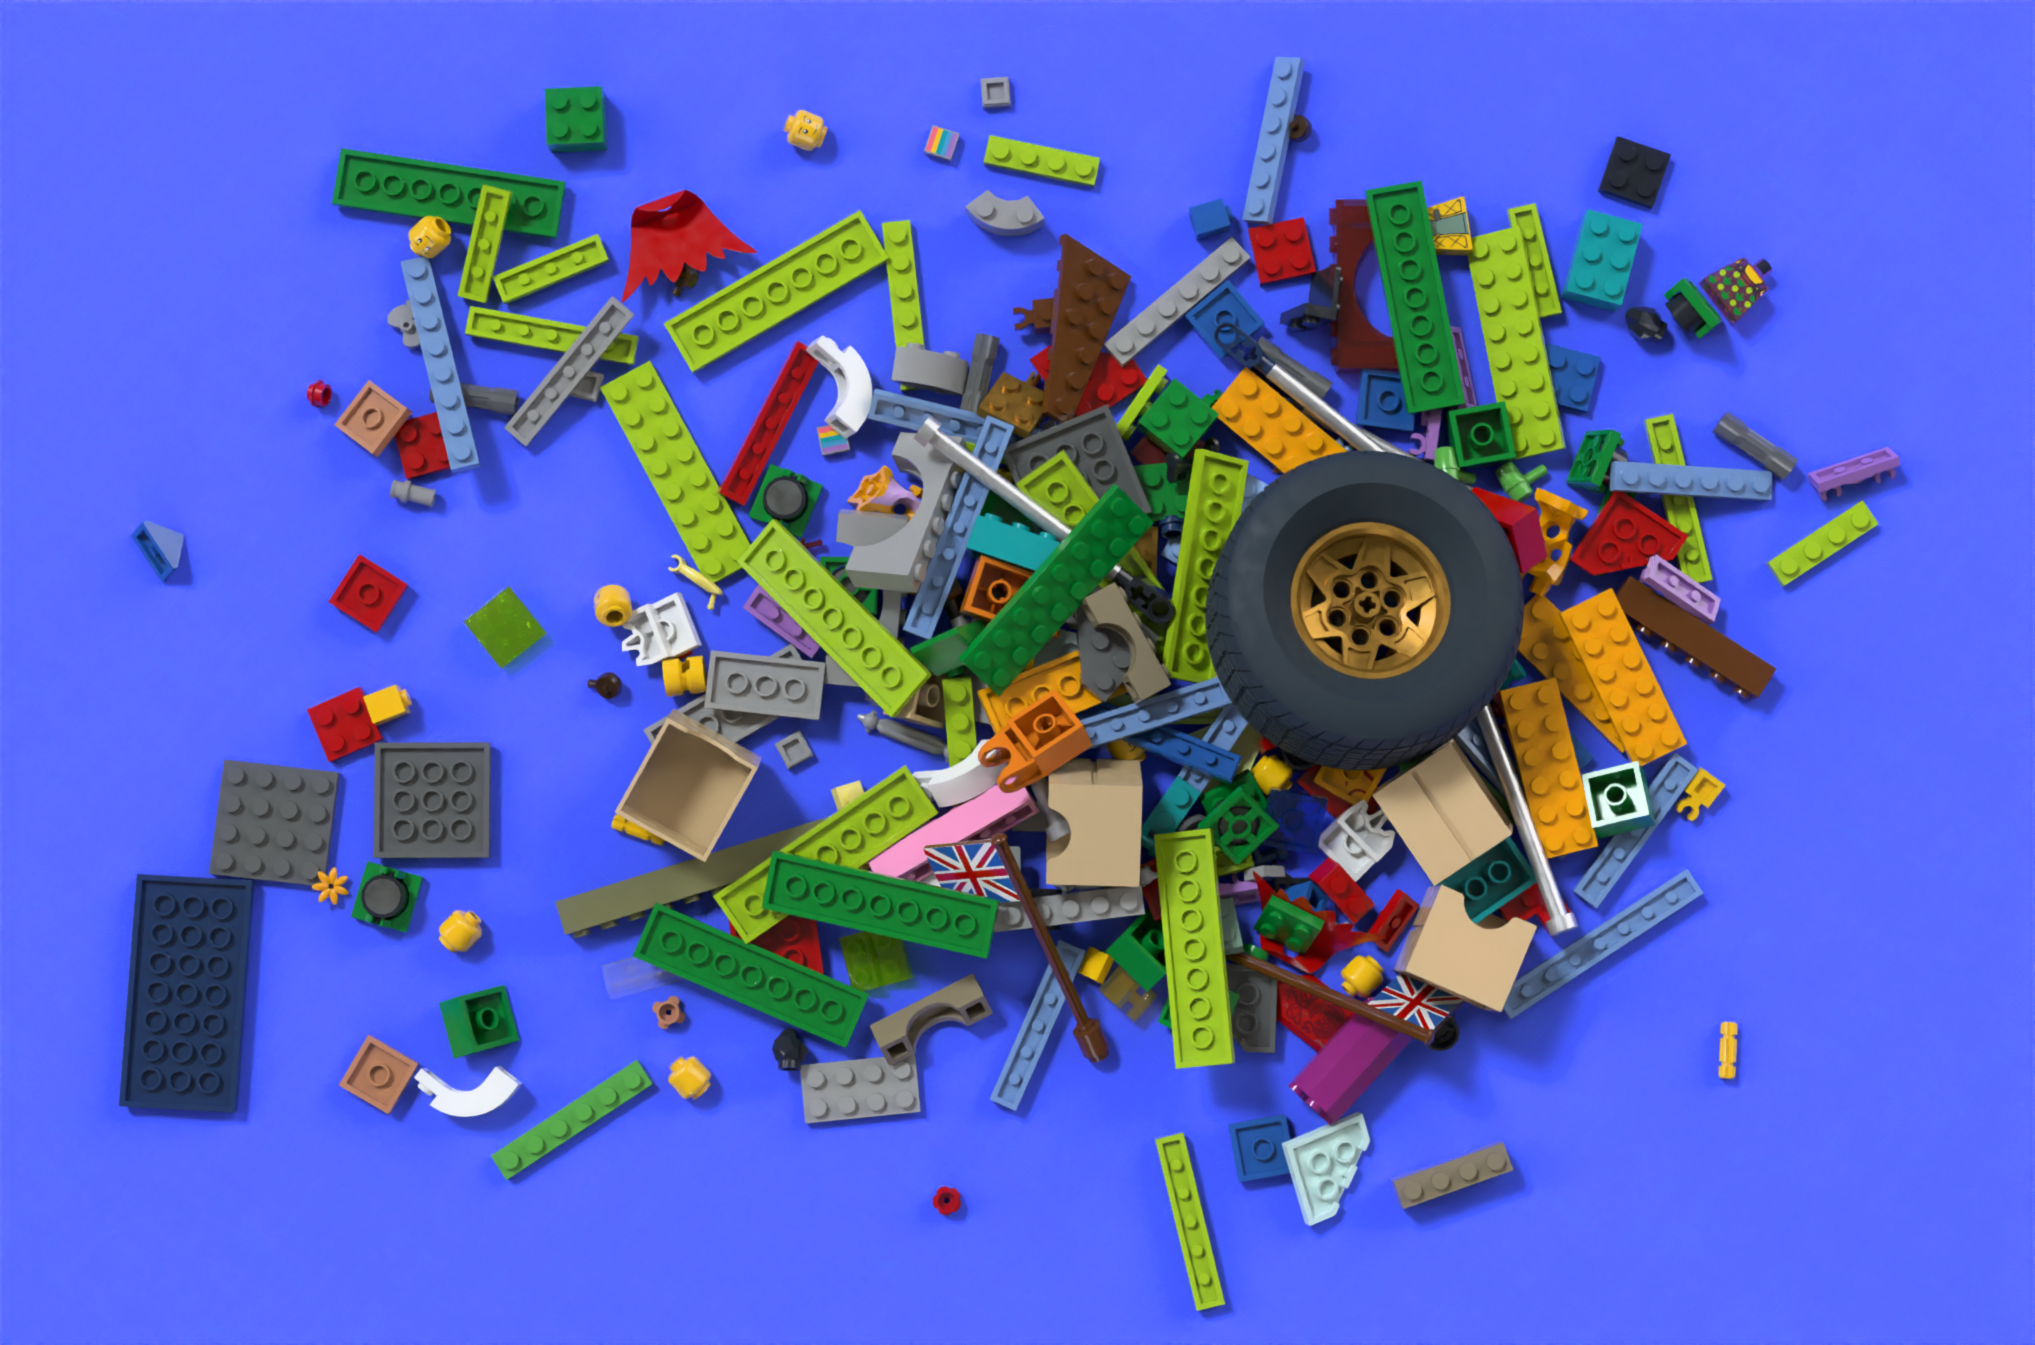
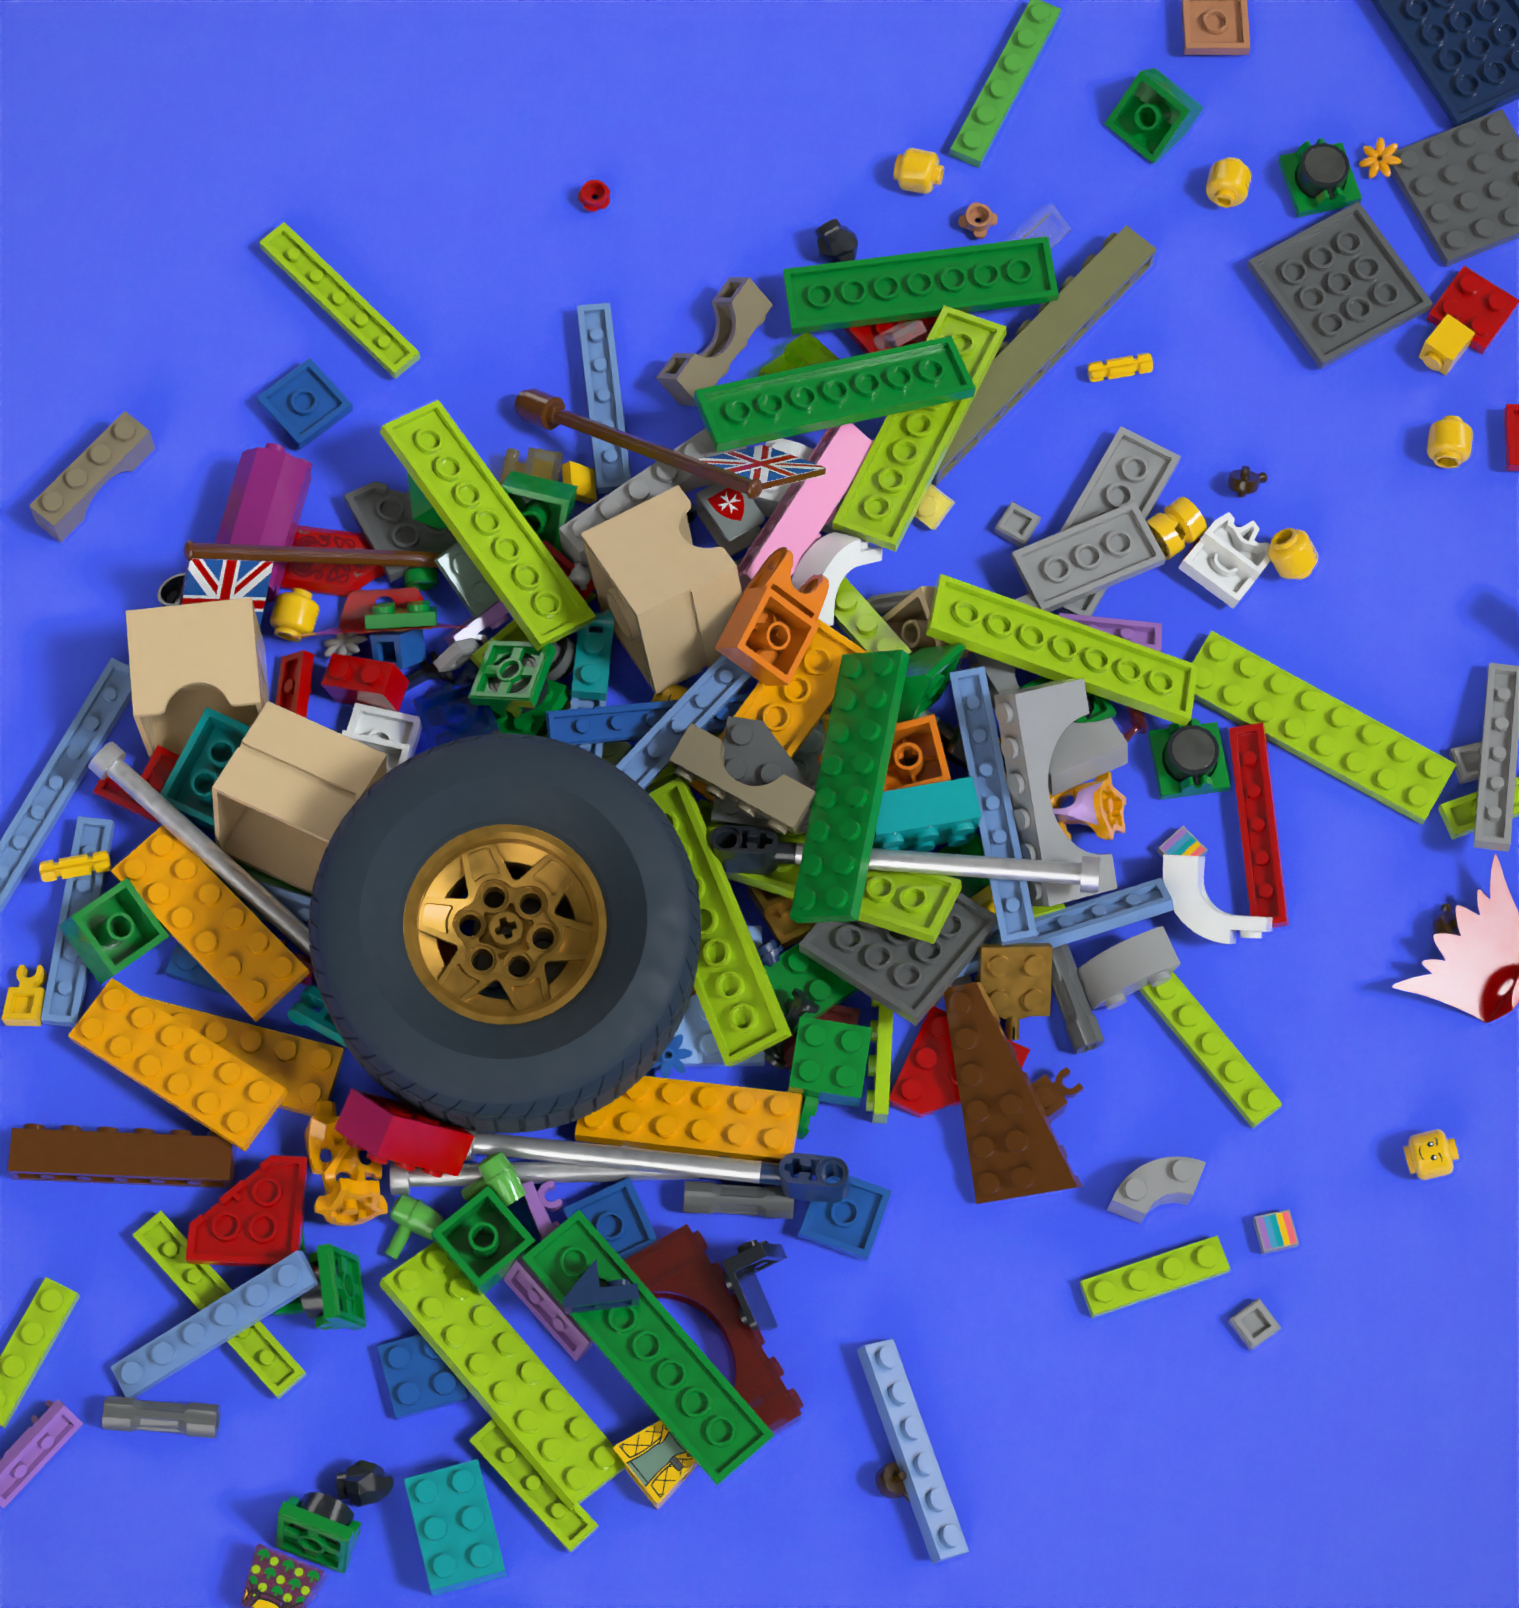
camera: 145 degrees right, 15 degrees down
(437, 627) = (1449, 442): none -> yellow head
(487, 1097) = (1116, 40): white arch -> none
(505, 627) = (1384, 479): clear neon green slope -> none
(688, 785) = (1101, 409): tan piece -> none
(698, 579) = (1227, 630): light yellow piece -> none
(776, 291) = (1343, 968): lime plate -> none
(796, 935) = (899, 334): none -> clear tile
(859, 1089) = (748, 246): light grey plate -> none
(1176, 302) = (909, 1203): light grey plate -> none
(1210, 218) = (929, 1316): blue brick -> none
(1281, 251) = (827, 1330): red plate -> none
(1325, 1164) = (229, 418): light aqua plate -> none
(1437, 345) = (588, 1295): none -> dark blue slope
(1619, 867) = (74, 866): none -> yellow axle
(1681, 589) = (162, 1195): medium lavender plate -> none

